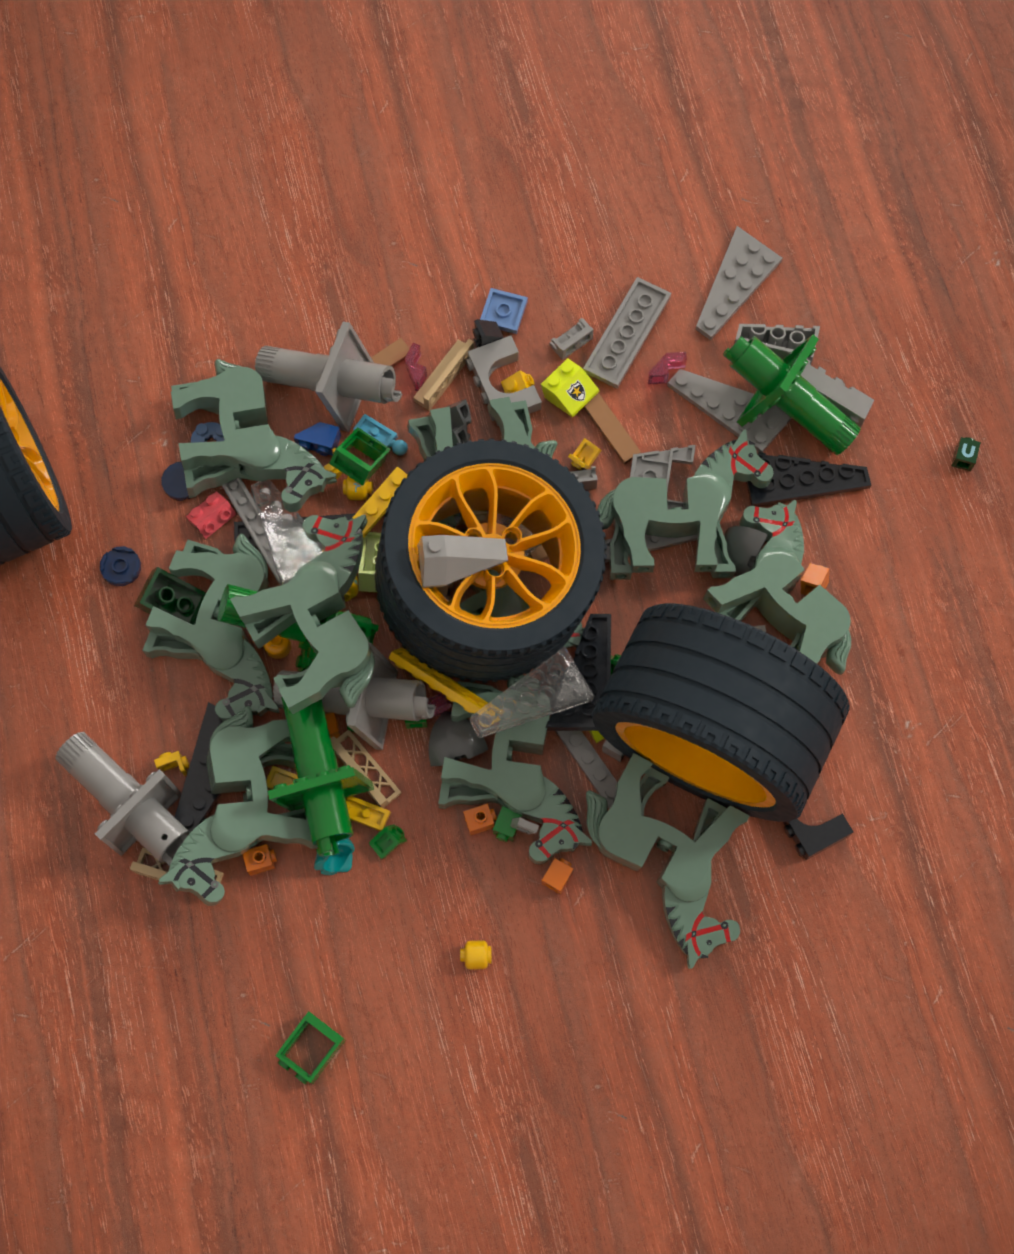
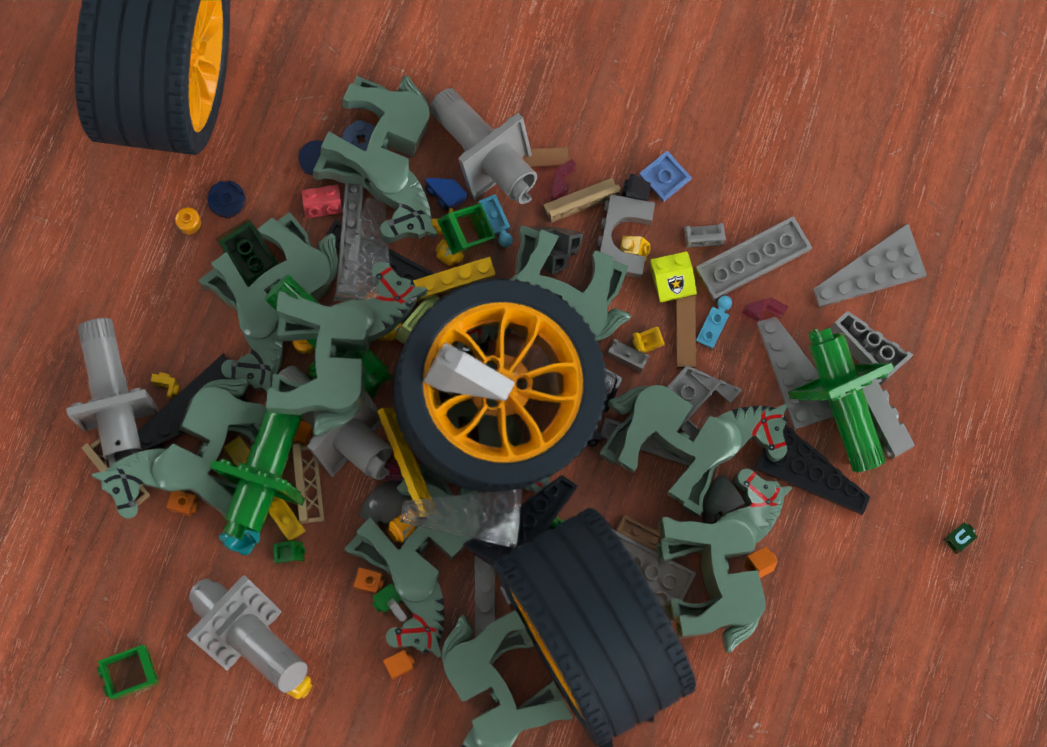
camera: 25 degrees right, 5 degrees up
(97, 605) = (188, 221): none -> light orange head
(389, 931) = (237, 626): none -> light grey piece
(479, 750) = (400, 531): none -> light orange head
(631, 406) = (714, 323): none -> medium azure plate

